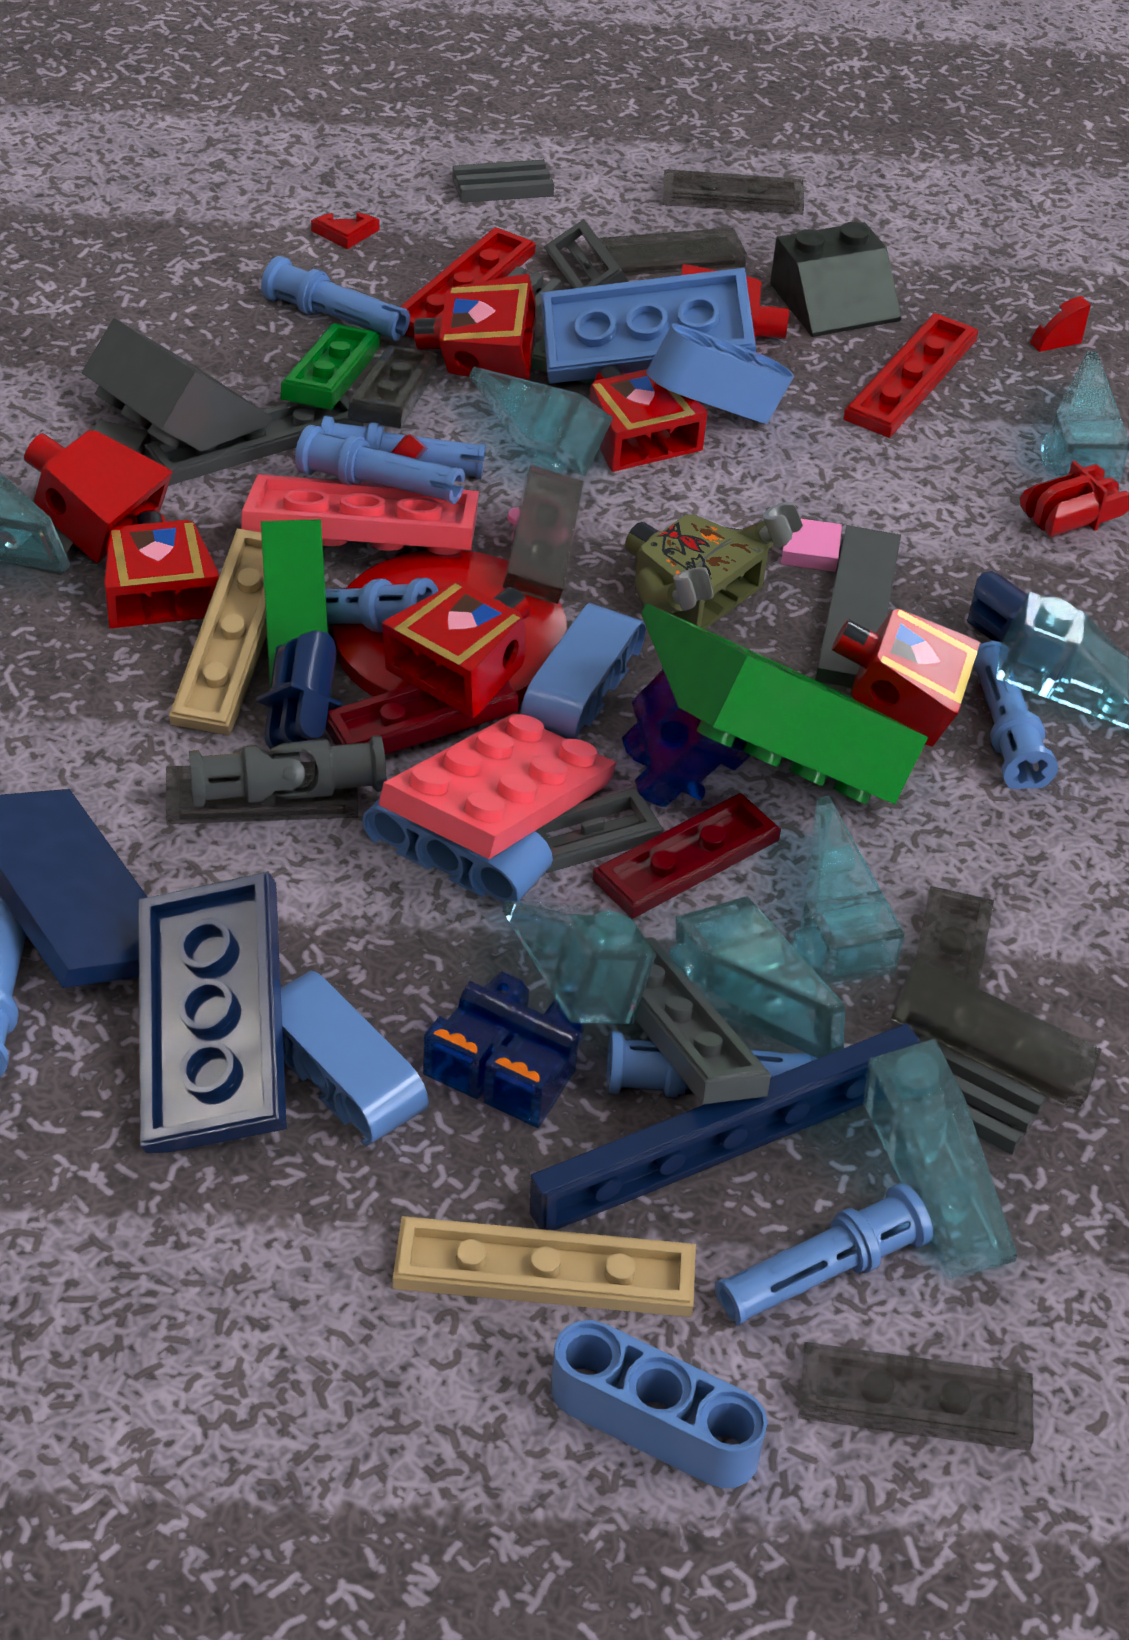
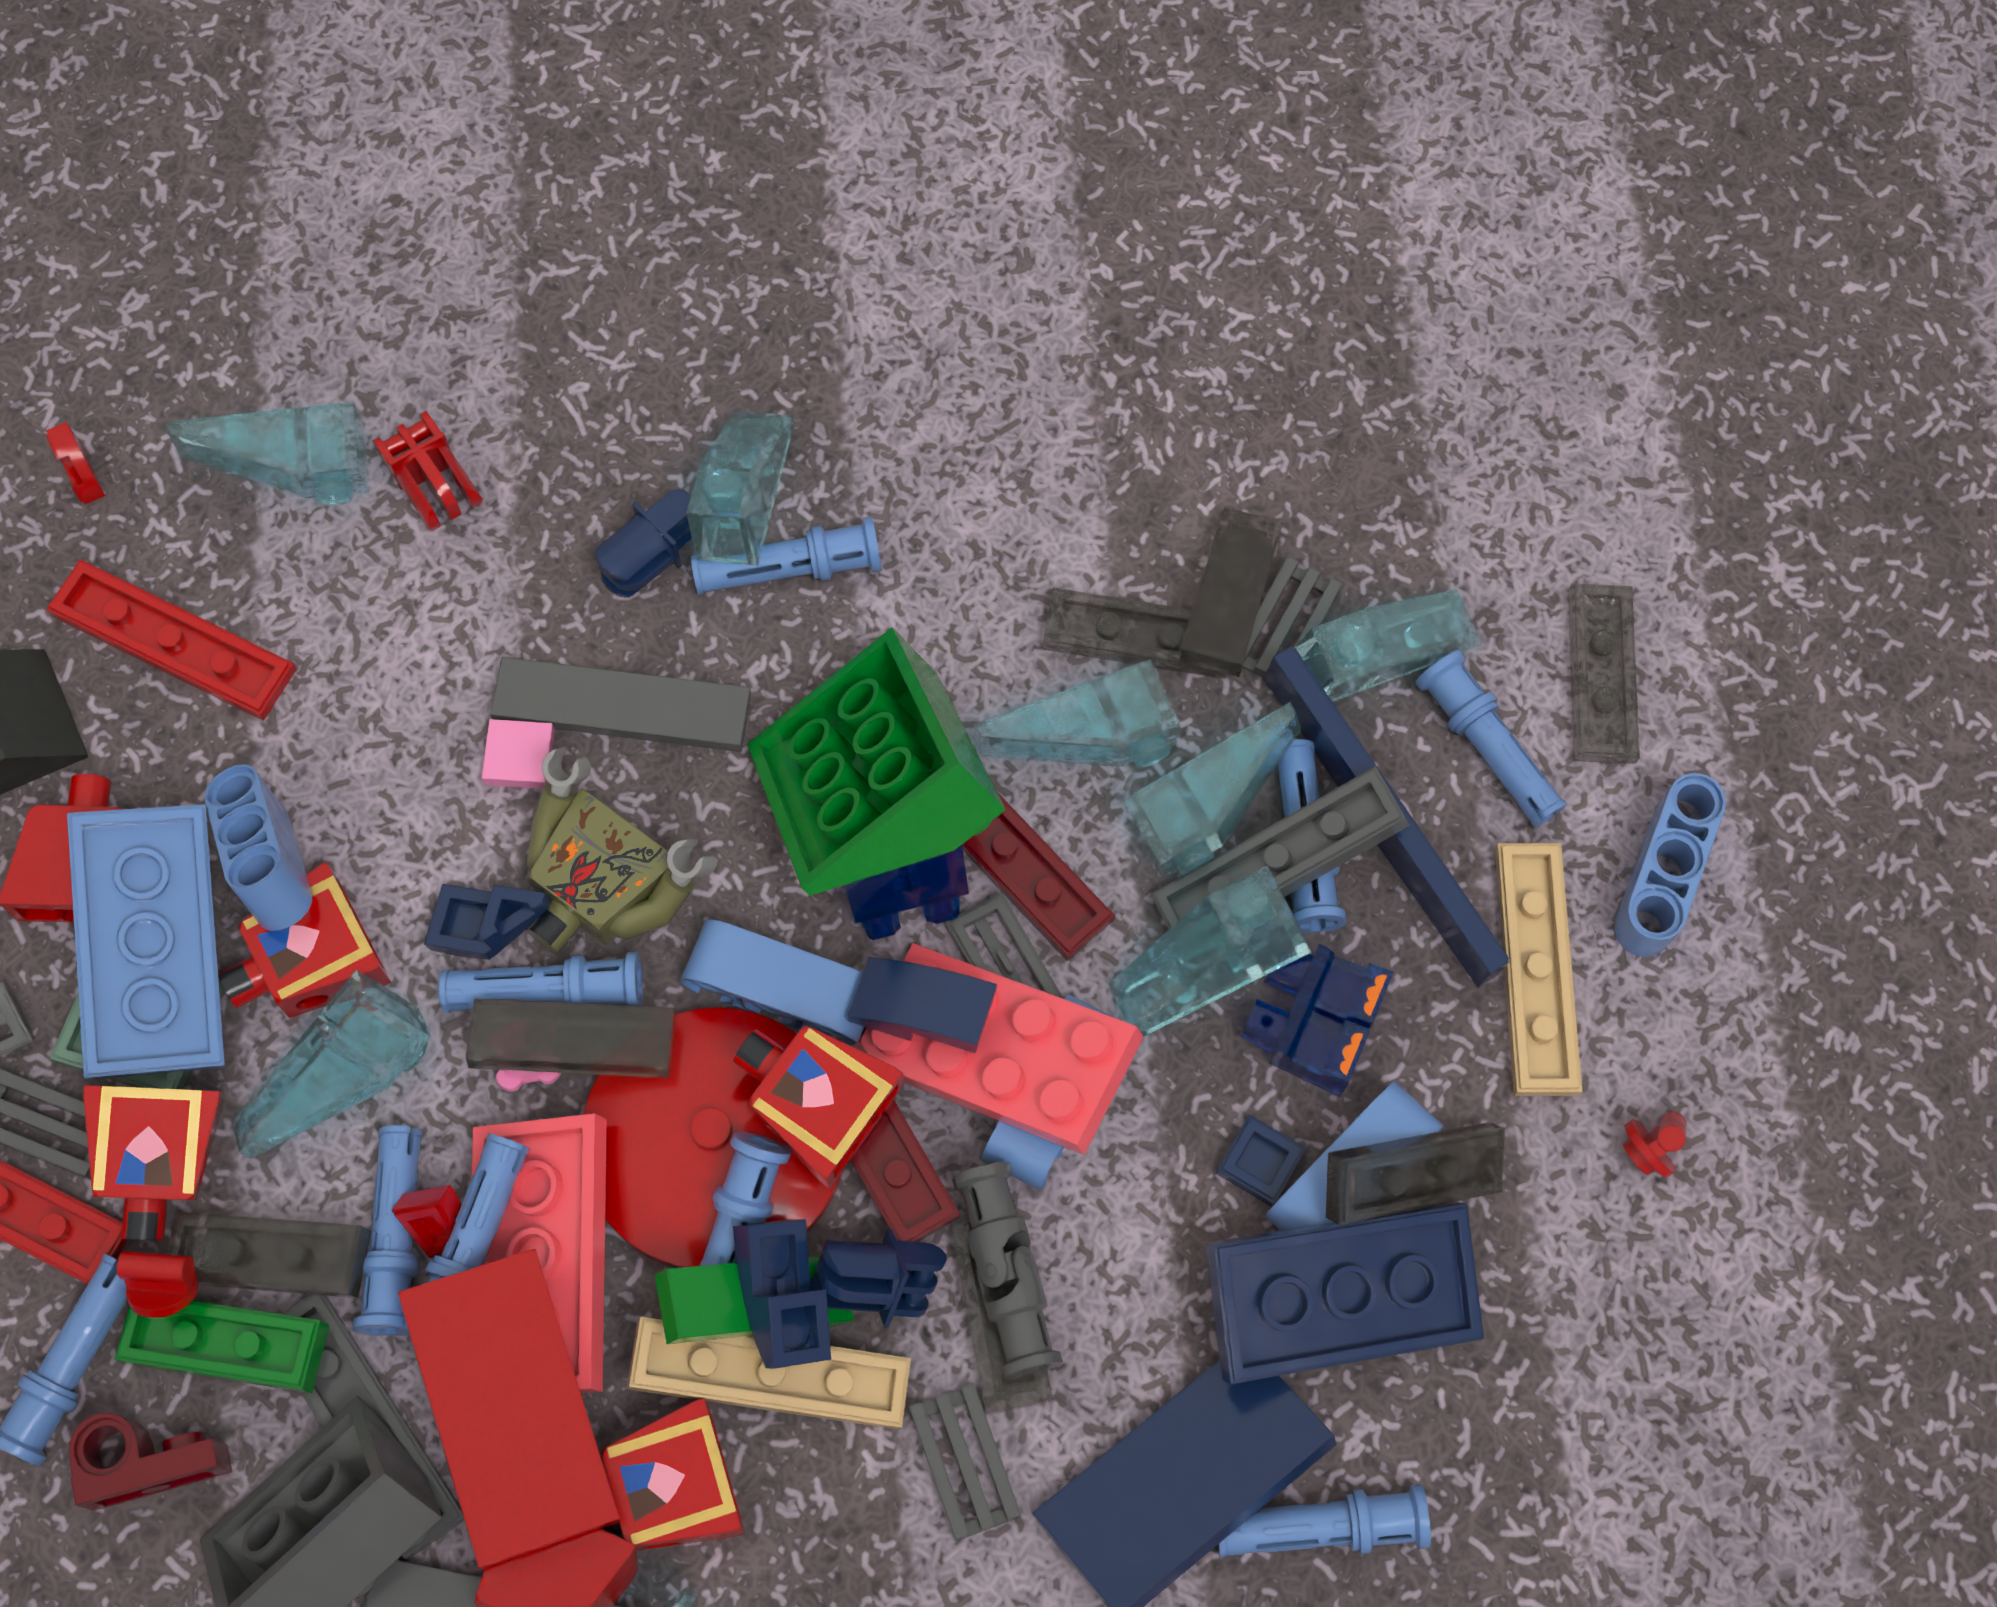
camera: 95 degrees left, 25 degrees up
(125, 755) = (985, 1519): none -> dark grey tile
(234, 455) = (508, 1409): none -> red tile
(254, 320) = (139, 1471): none -> dark red plate
(277, 611) = (781, 1307): none -> dark blue slope
(319, 1078) = (1414, 1172): none -> clear smoke tile
(319, 1330) = (1650, 1149): none -> red plate
(372, 990) = (1260, 1160): none -> dark blue tile
(376, 330) = (157, 1282): none -> red plate
(542, 726) = (922, 1001): none -> dark blue slope
(597, 554) = (572, 982): none -> medium blue pin
(657, 504) = (481, 921): none -> dark blue slope
(910, 670) = (761, 646): red torso -> none

